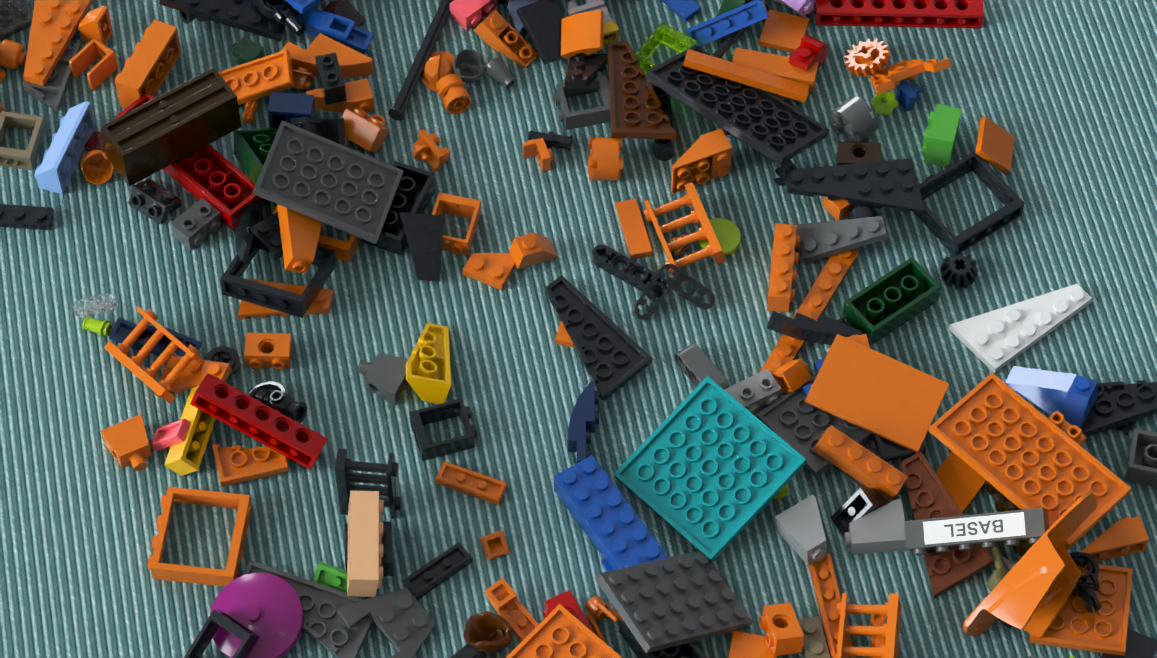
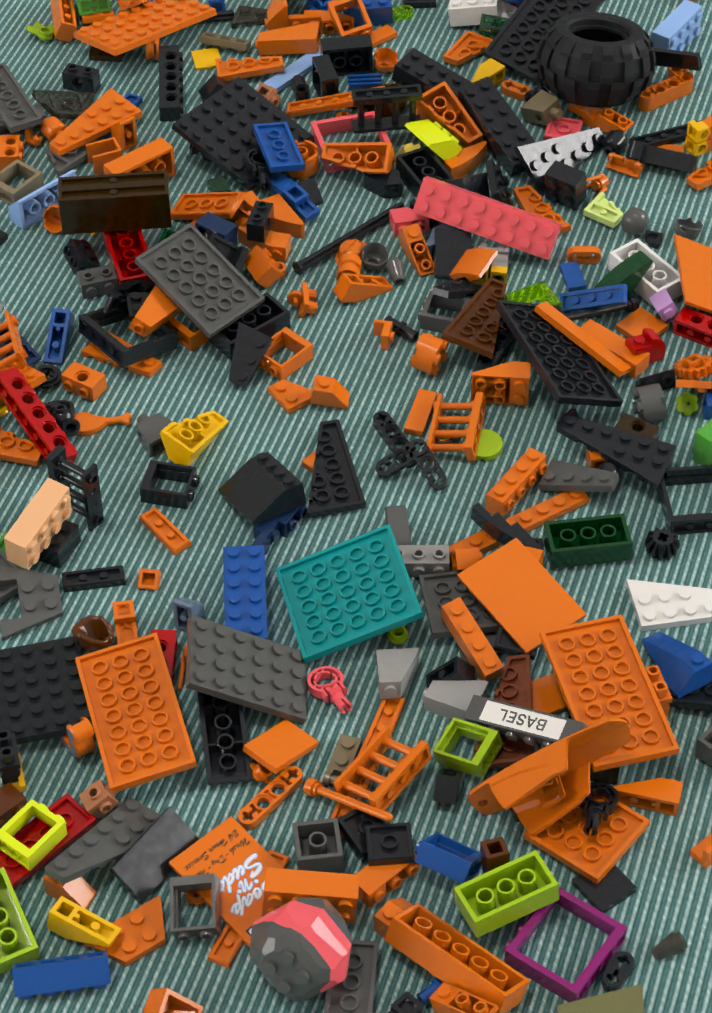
camera: 30 degrees right, 10 degrees down
(203, 310) = (58, 335): none -> blue slope
(313, 393) = (94, 424): none -> orange piece
(478, 108) = (360, 287): none -> orange slope
(546, 392) = (263, 489): none -> black slope
(566, 566) = (183, 609): none -> sand blue slope
(758, 582) = (334, 691): none -> coral pin
(781, 629) = (321, 732): orange brick -> none
(840, 90) = (665, 379): none -> black hinge
(923, 558) = (484, 756): none -> lime window
(930, 624) = (447, 786): none -> black slope

